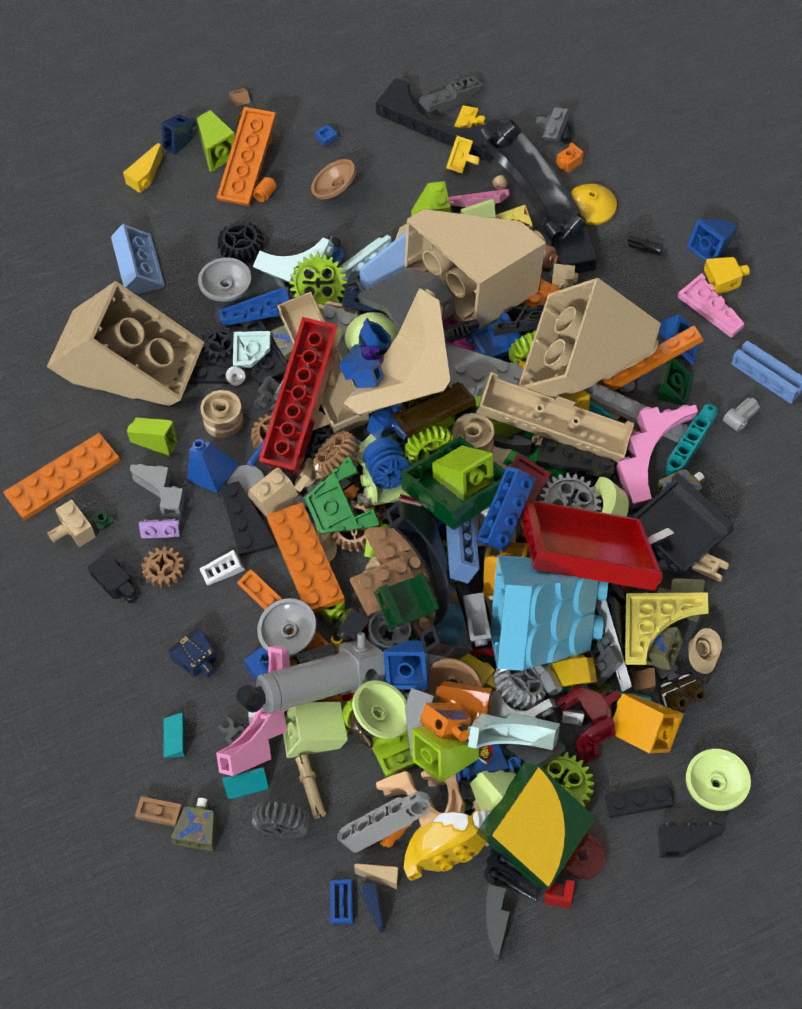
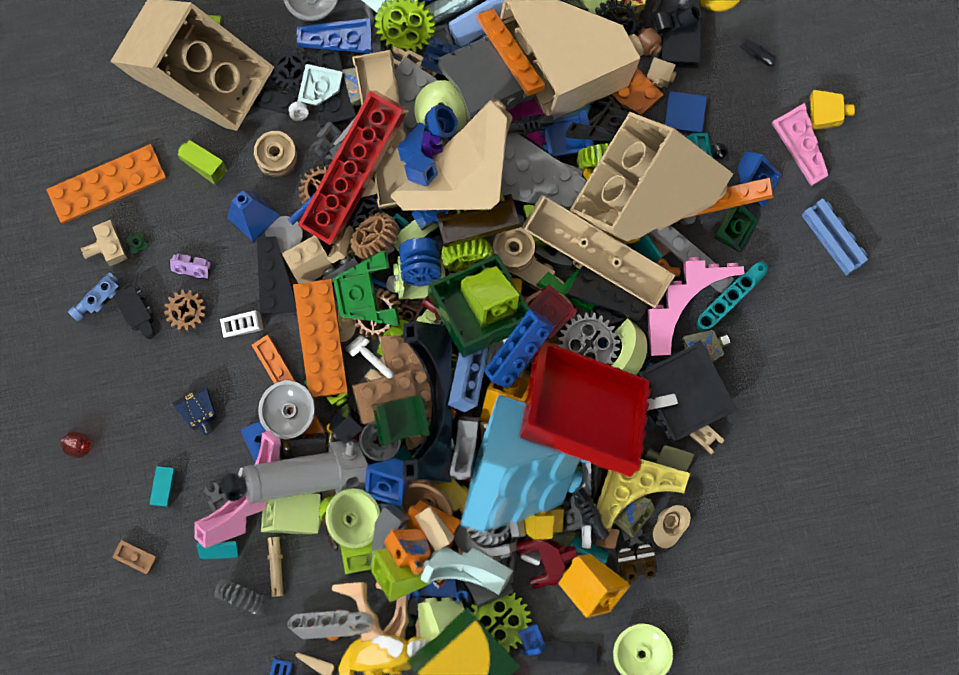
camera: 10 degrees right, 20 degrees up
(72, 570) = (99, 295): none -> medium blue brick
(75, 714) = (76, 444): none -> clear red head
(157, 481) = (198, 214): light grey arch -> none
(196, 827) = (165, 580): olive torso -> none
(347, 555) = (359, 345): none -> white piece
(351, 492) = (382, 274): orange plate -> none
(424, 274) = (510, 52): none -> orange plate
(467, 697) = (434, 528): none -> tan slope
(588, 742) = (536, 592): dark red plate -> none
(598, 792) = (532, 640): none -> blue tile
(622, 647) = (590, 513): none -> black hinge
(711, 237) = (829, 62): blue slope -> none
(739, 417) = (788, 280): light grey piece -> none

